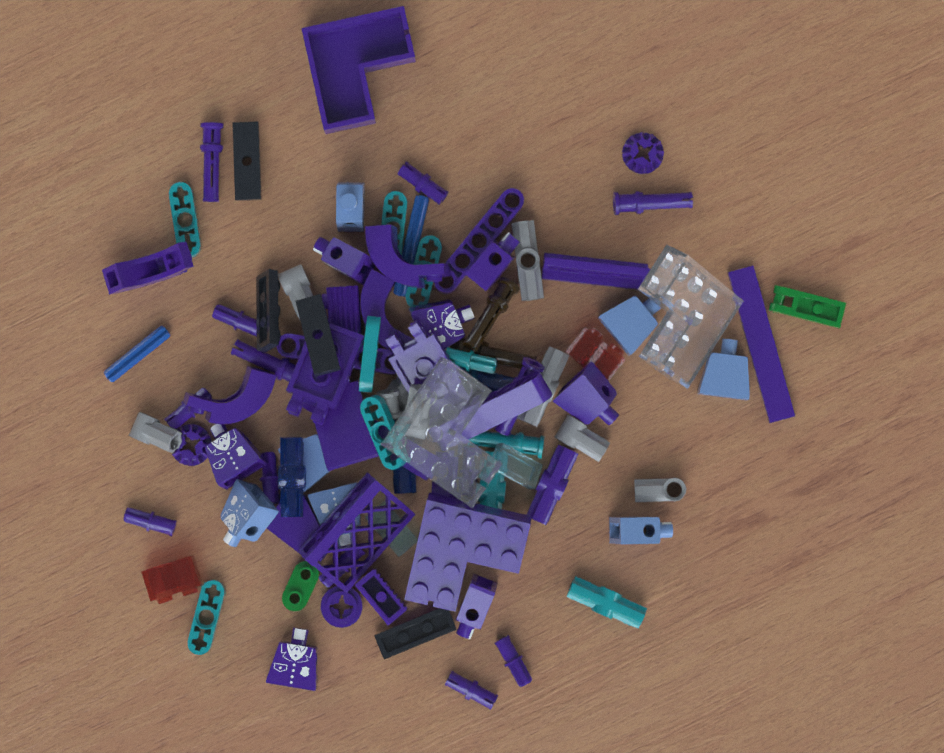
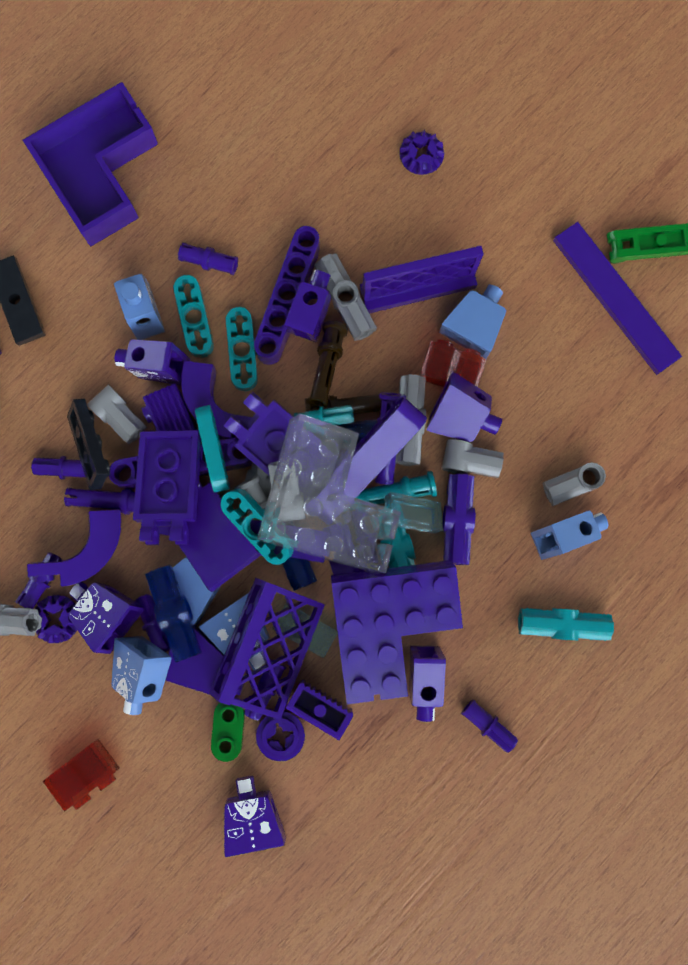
camera: 20 degrees left, 5 degrees down
(150, 521) = (37, 719): dark purple axle -> none
(196, 622) = (146, 825): teal beam -> none
(315, 321) = (138, 435): black tile -> none
(385, 254) = (228, 350): dark purple arch -> none
(413, 237) = (218, 325): blue axle -> none
(415, 632) = (370, 735): black plate -> none
(443, 320) = (280, 386): dark purple torso -> none
(471, 690) = (456, 776): dark purple pin -> none
(638, 202) = (438, 199): dark purple pin -> none
(695, 318) = (543, 282): clear piece -> none
(726, 373) = (595, 338): medium blue torso -> none

